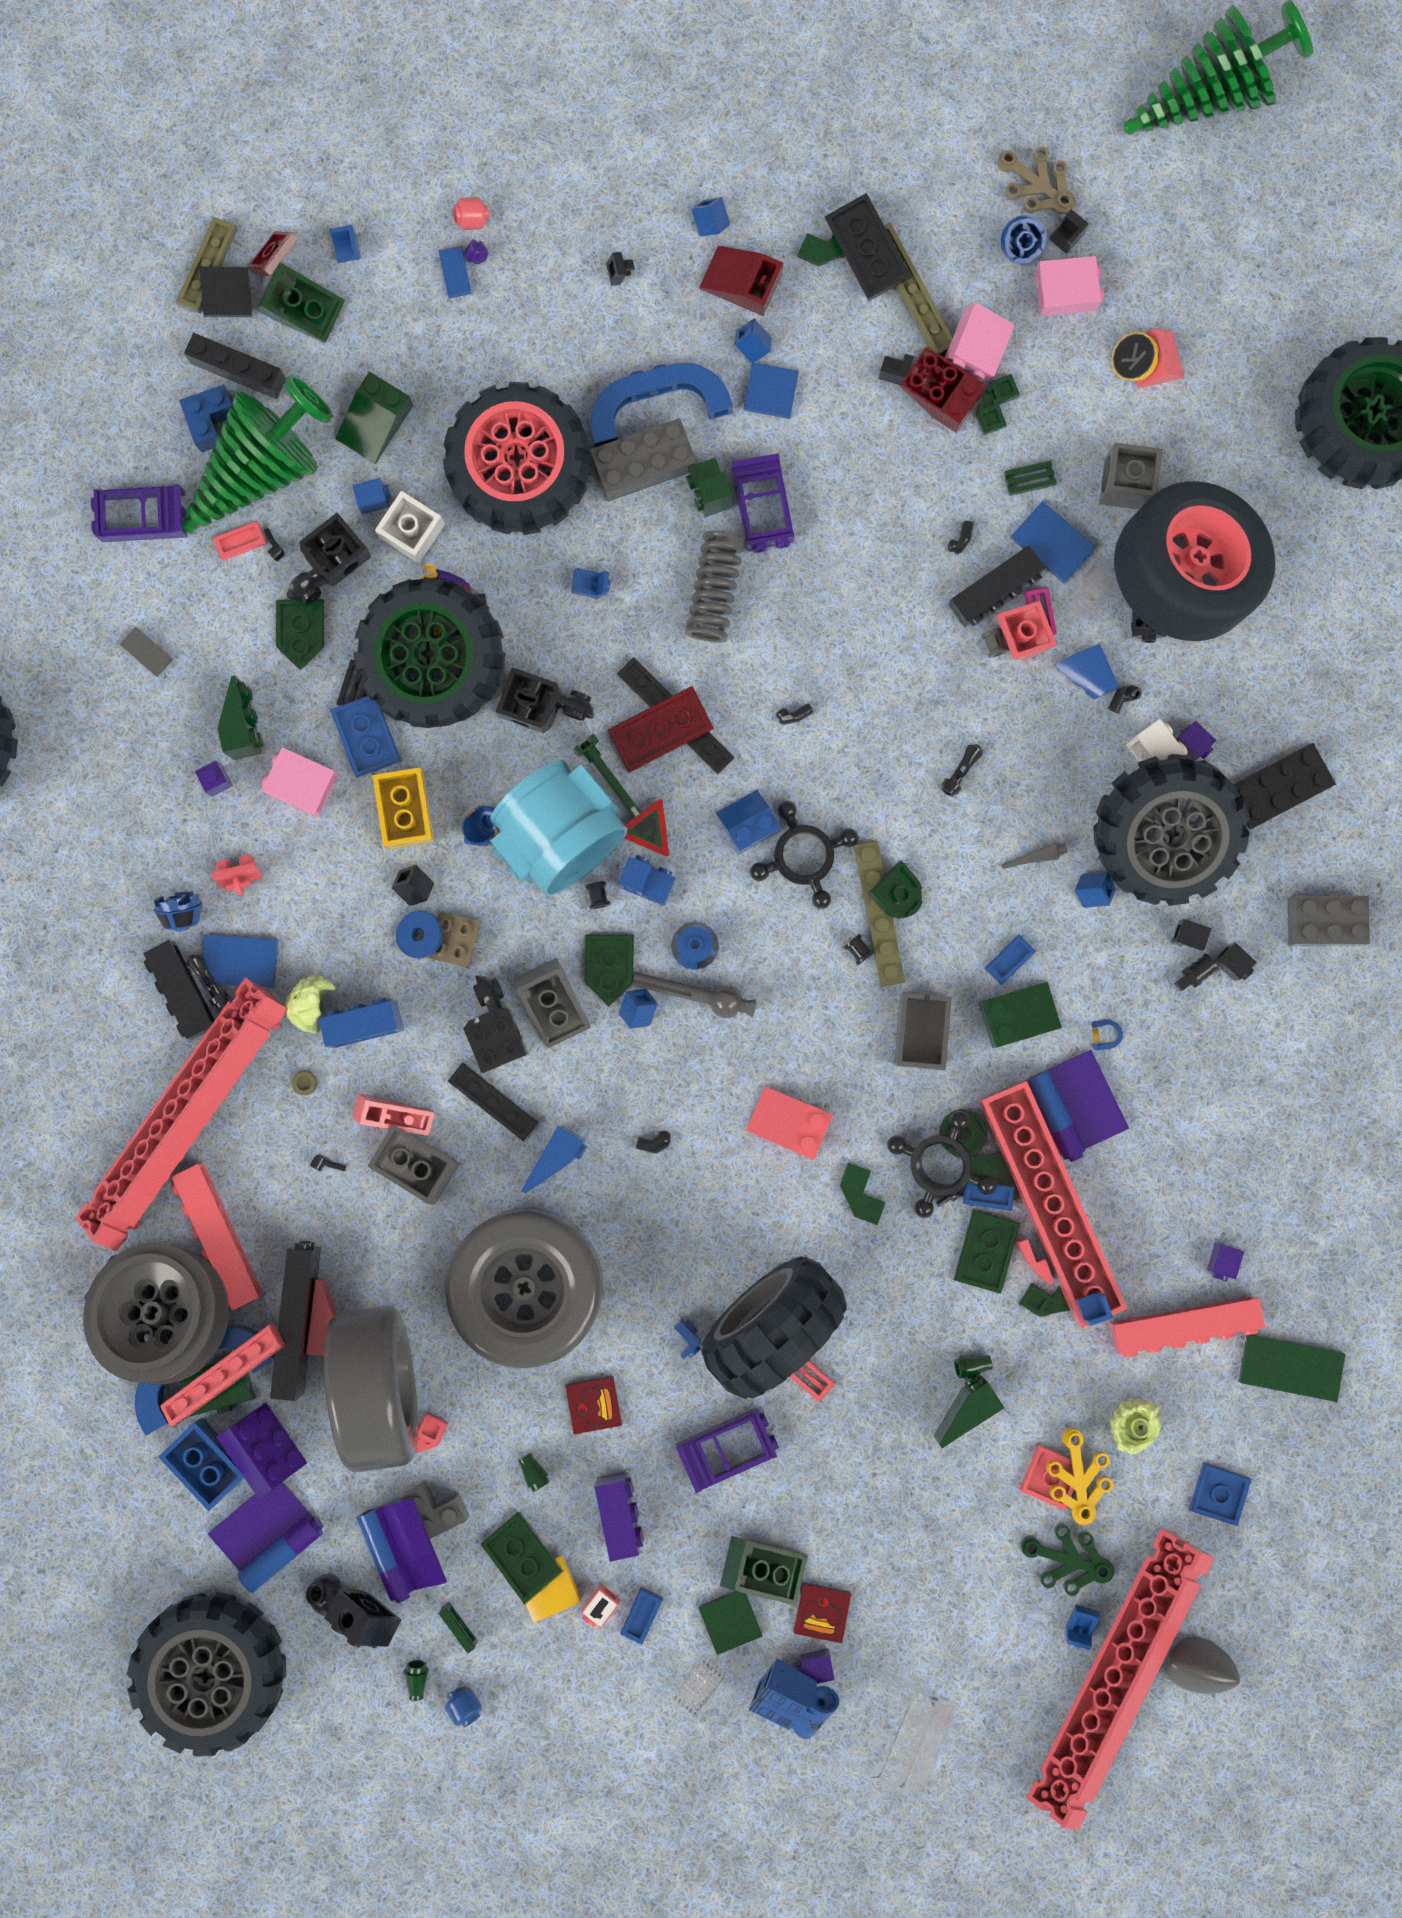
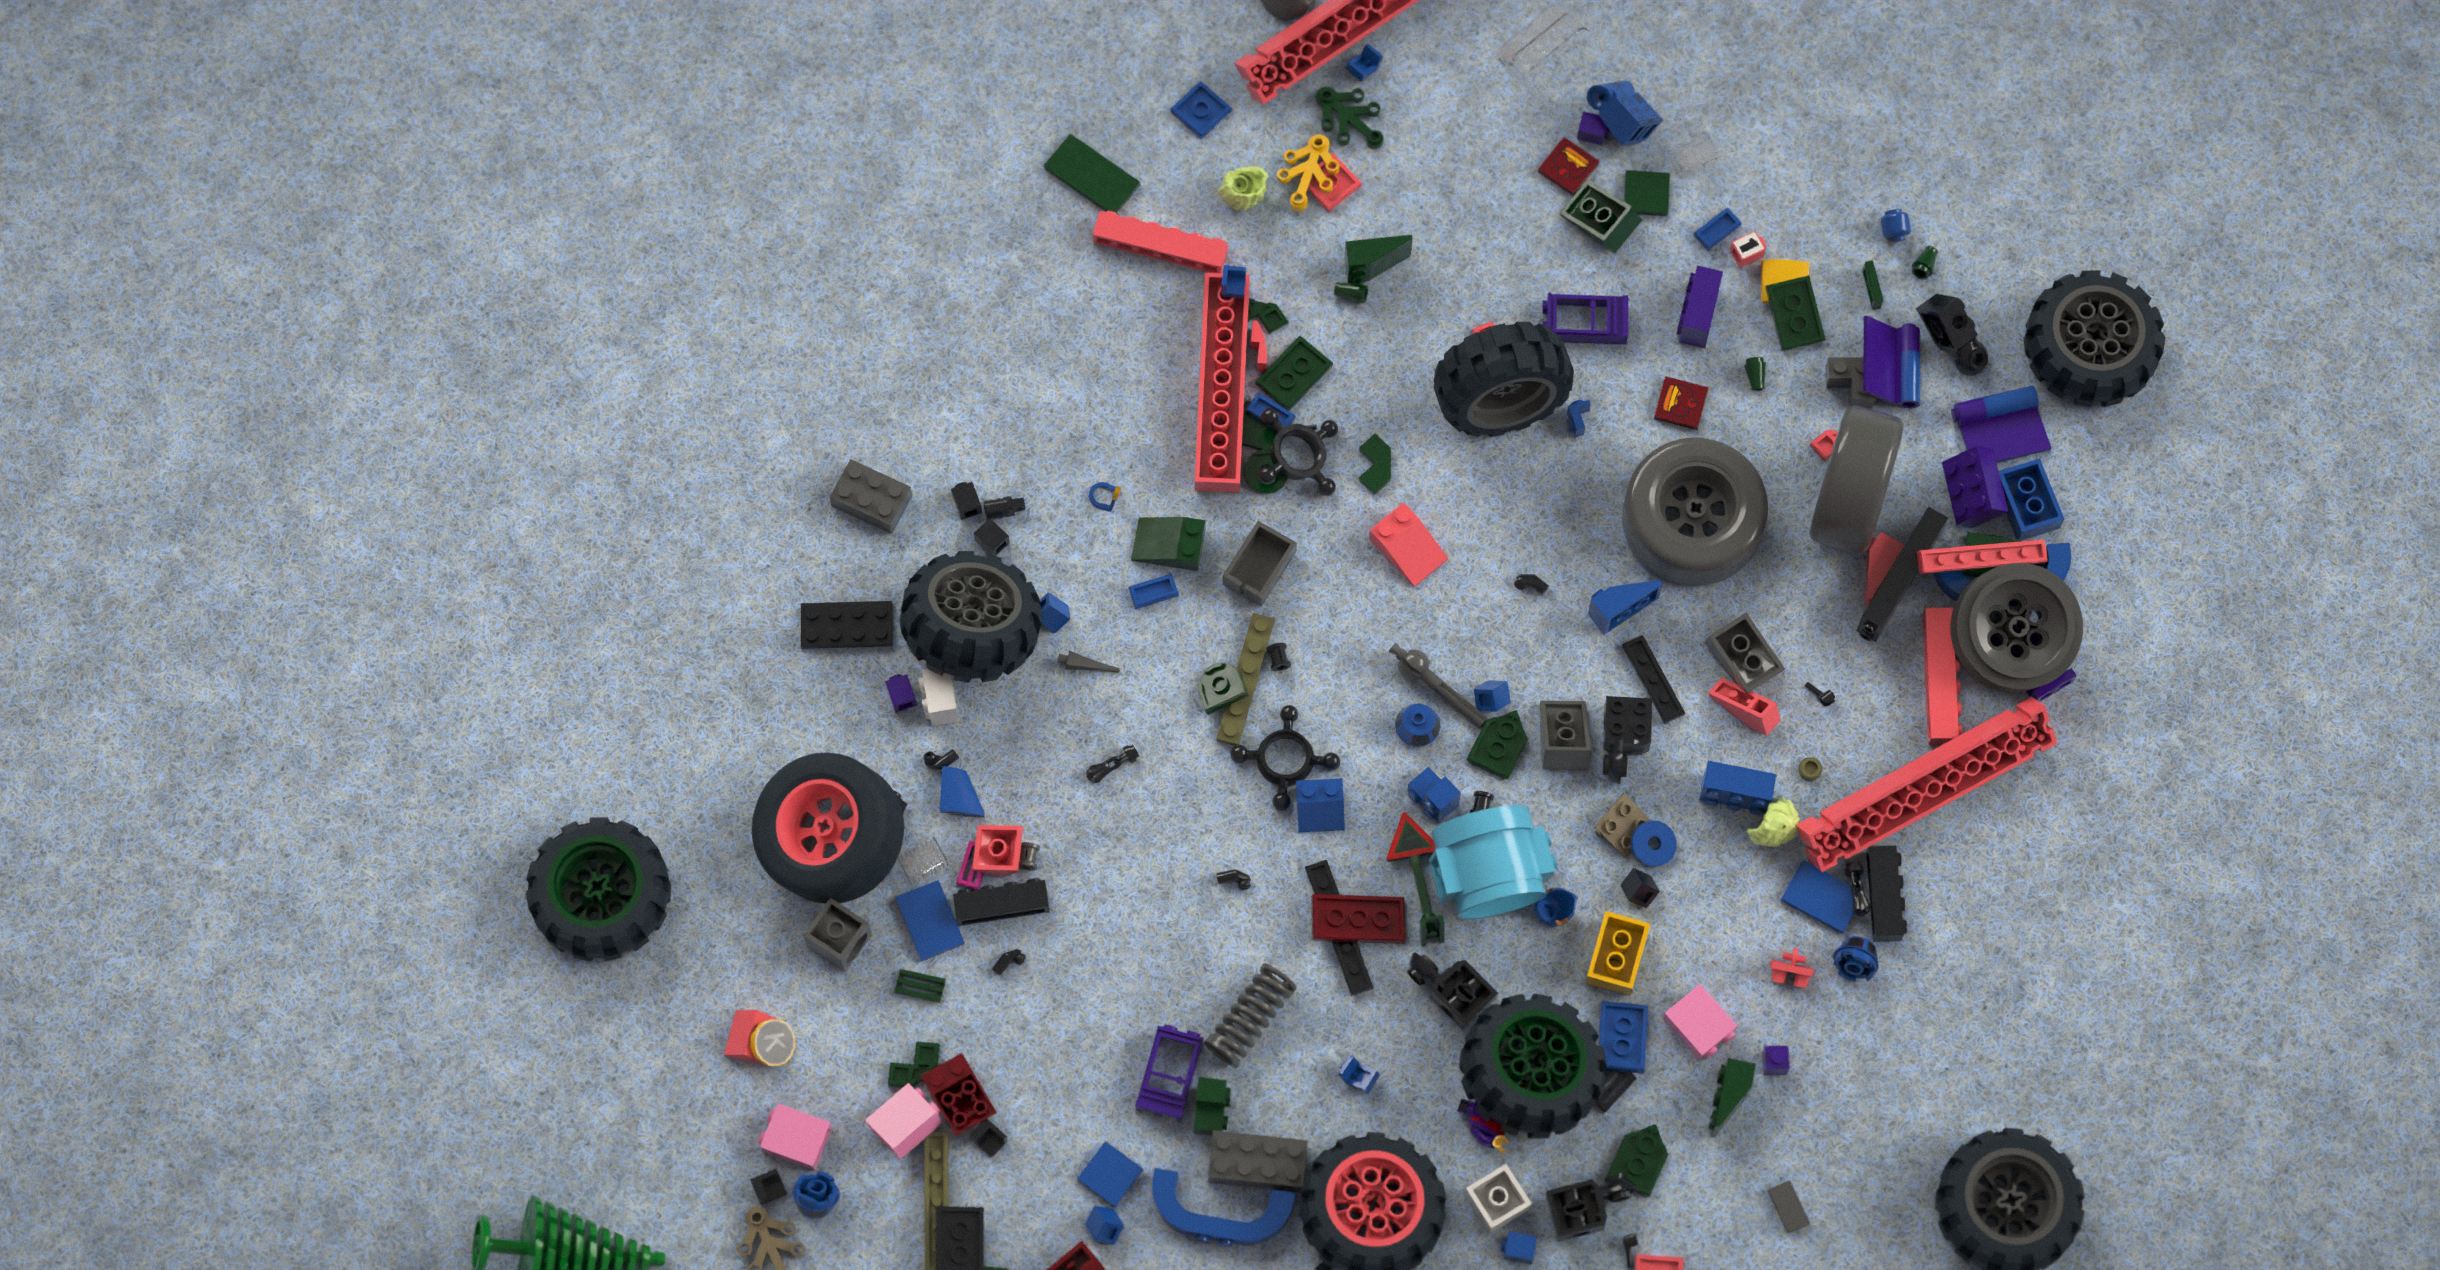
camera: 155 degrees left, 15 degrees down
(1077, 1105) = (1159, 451): dark purple door -> none
(1225, 1262) = (1103, 275): dark purple brick -> none

